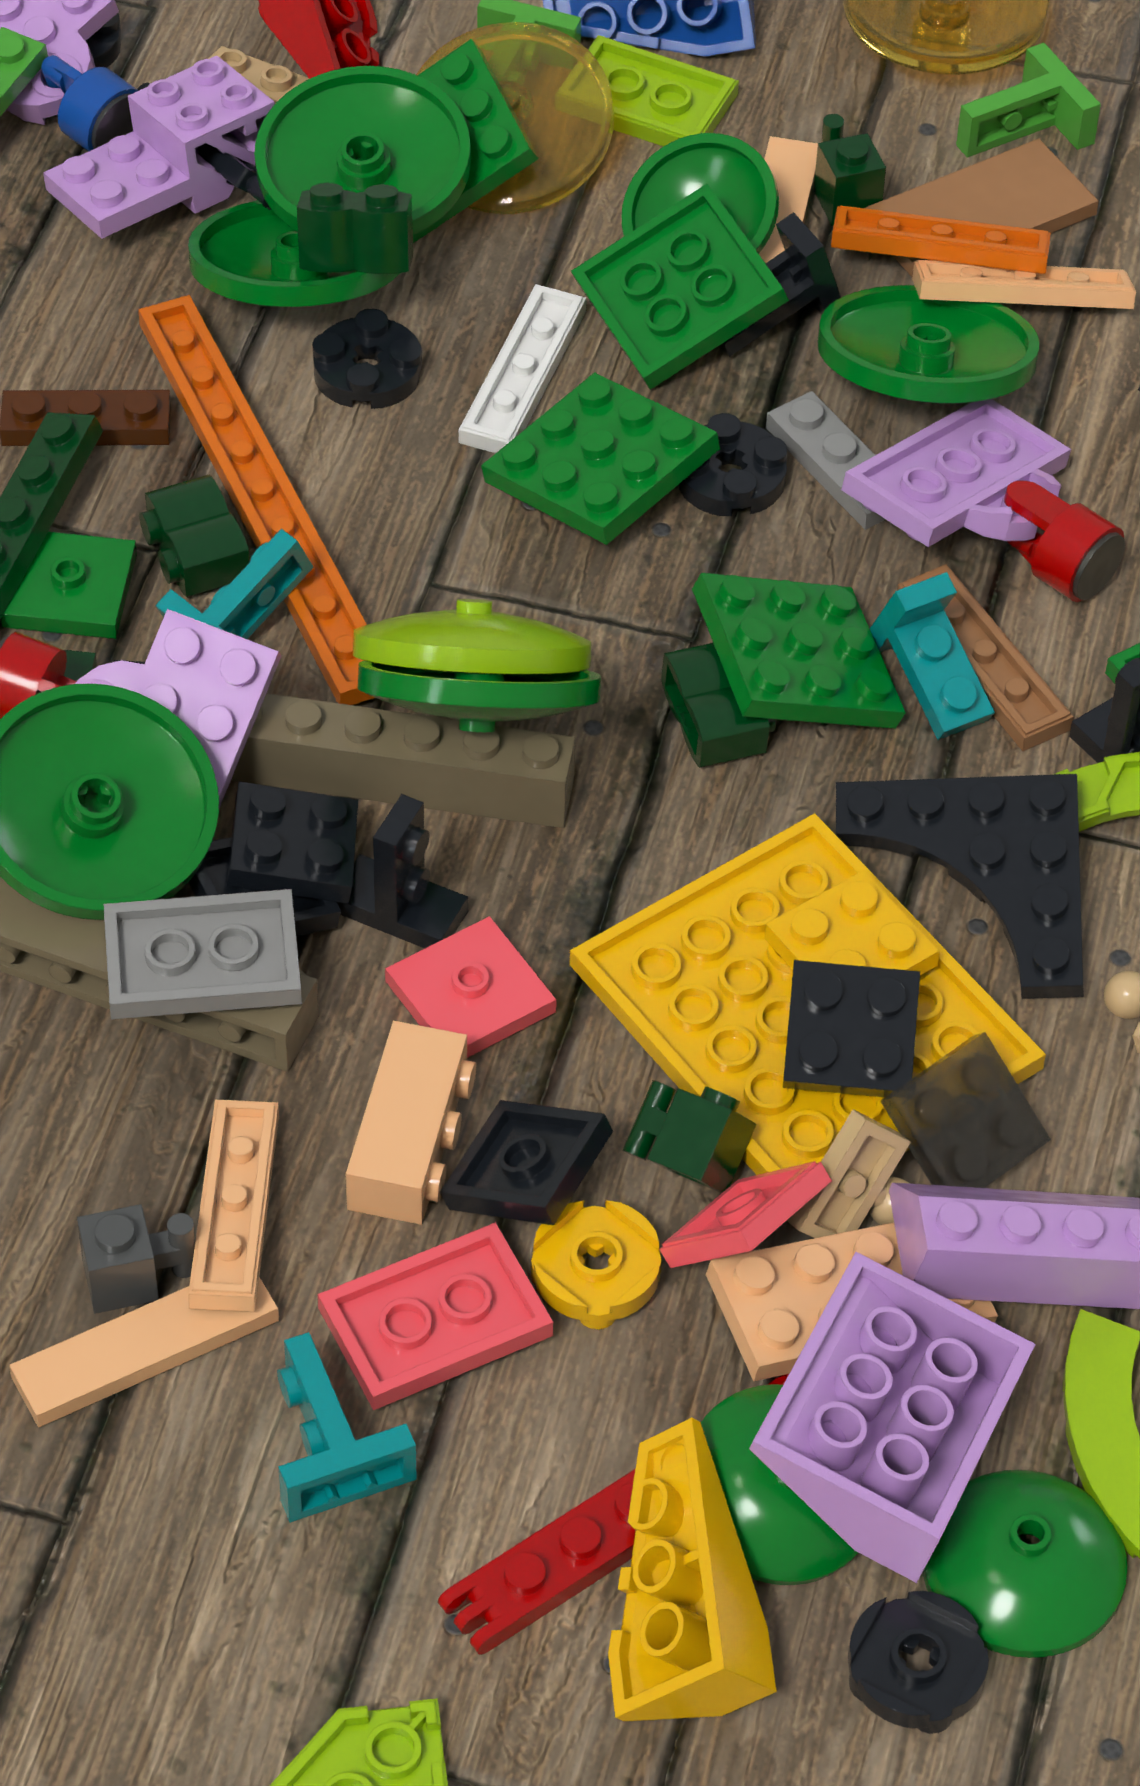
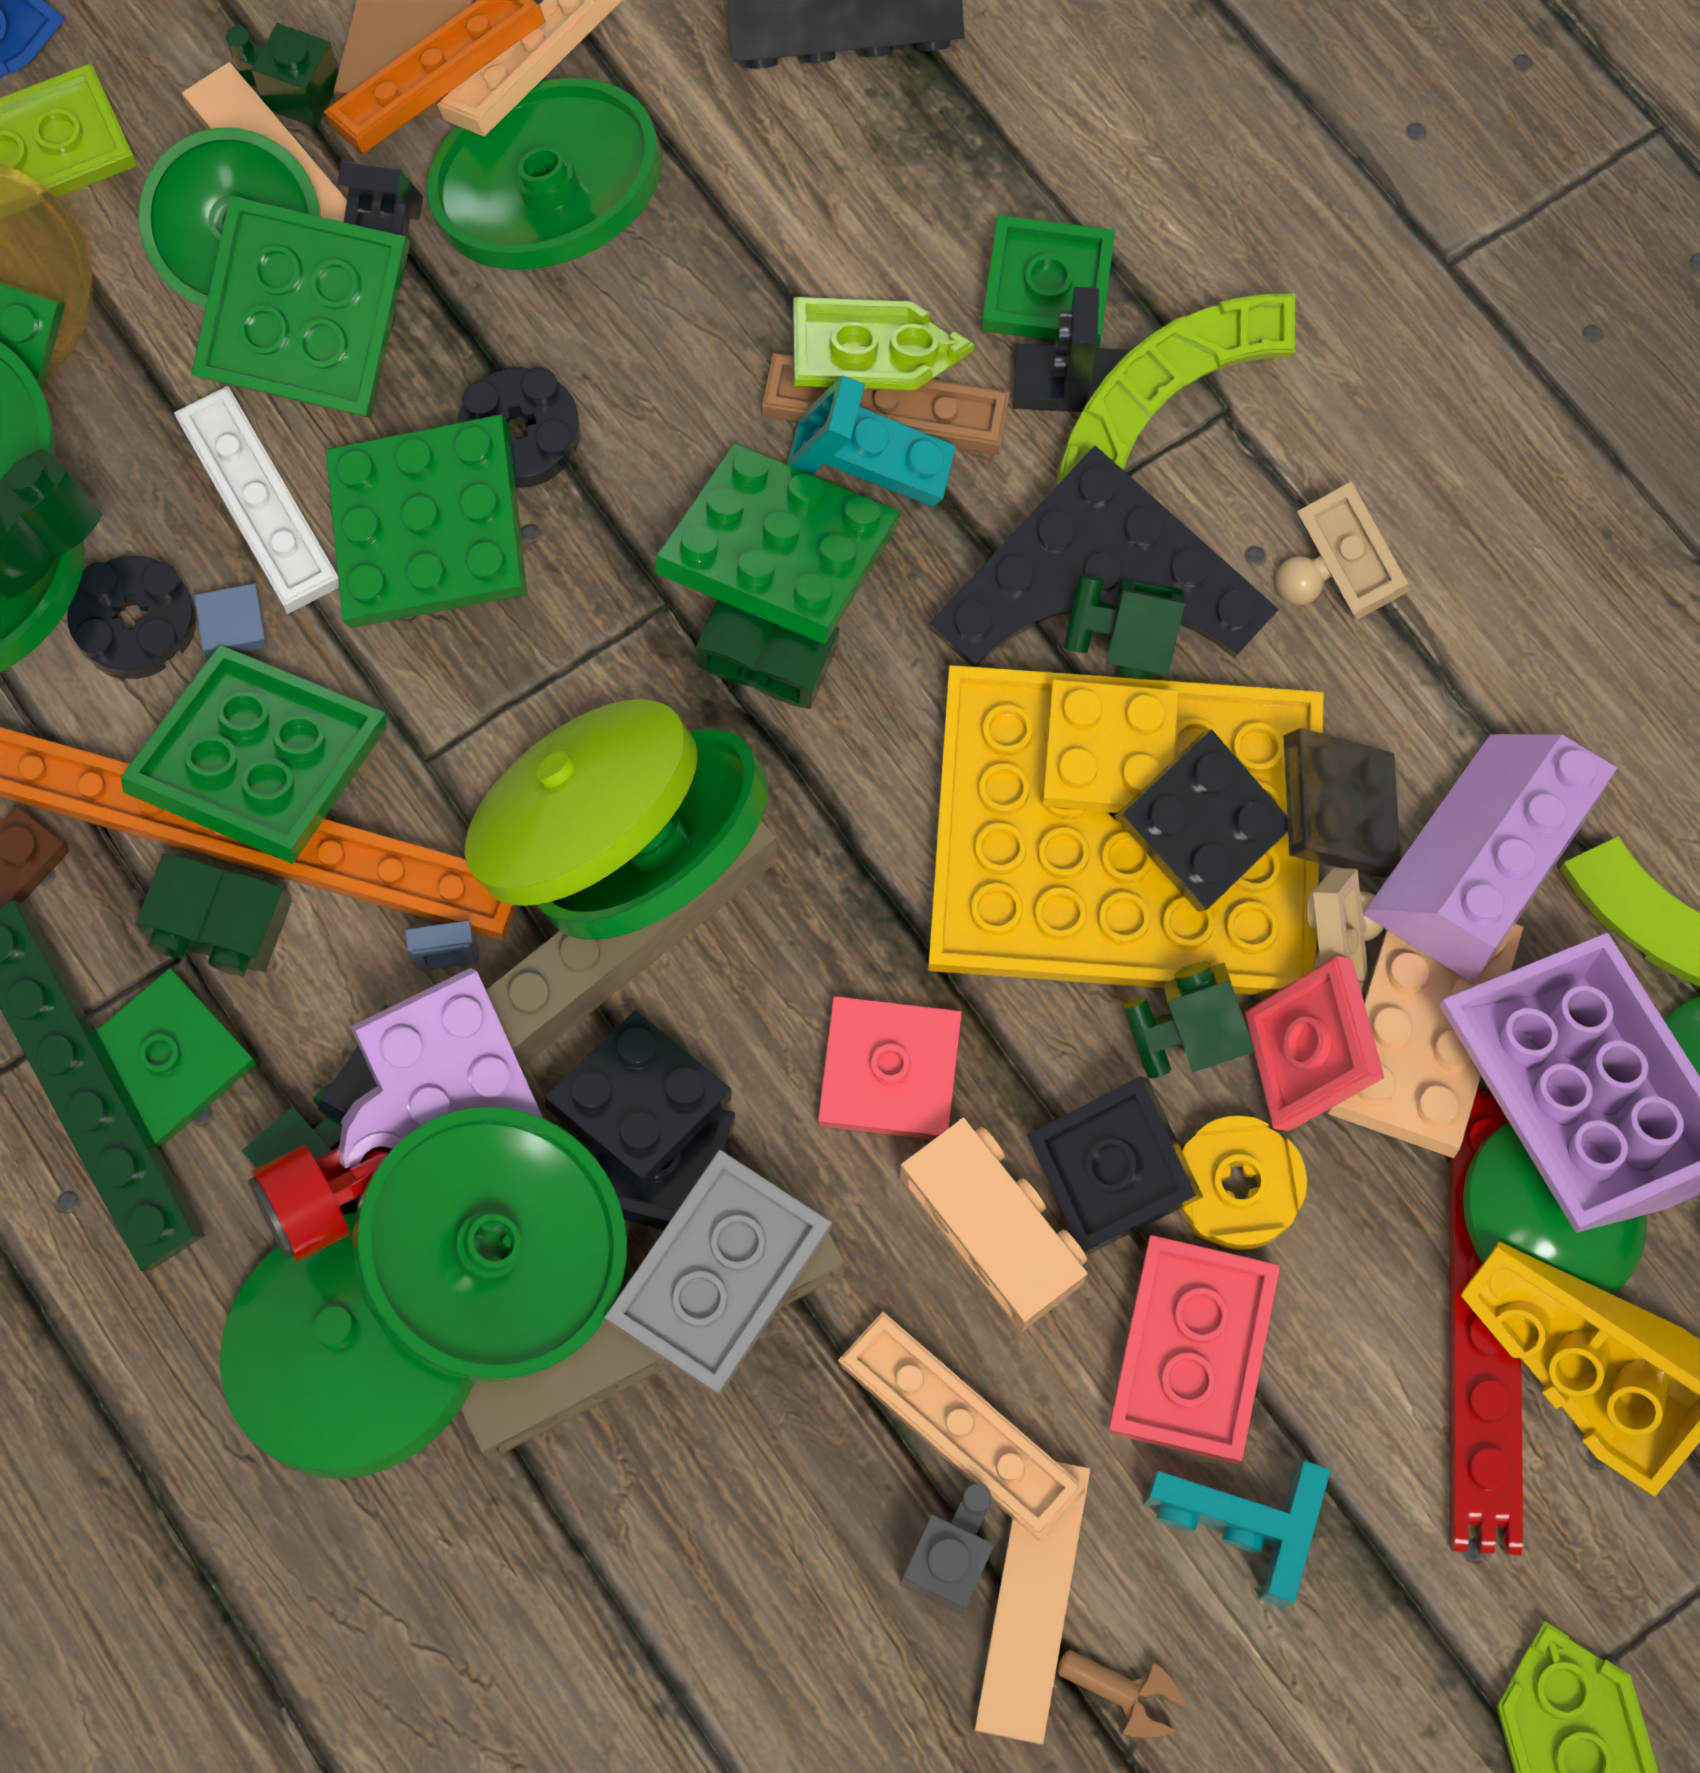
camera: 50 degrees left, 20 degrees up
(125, 1453) = (1124, 1692): none -> medium nougat bar
(254, 593) = (339, 949): teal bracket -> none
(300, 668) = (442, 945): none -> sand blue tile
(331, 474) = (254, 753): none -> green plate
(395, 887) = (760, 1044): black bracket -> none
(419, 413) = (231, 619): none -> sand blue tile
(822, 448) = (584, 339): light grey plate -> none
(967, 897) = (1139, 626): none -> dark green brick
(995, 478) = (719, 264): lavender plate -> none
(1015, 610) = (871, 342): none -> lime tile

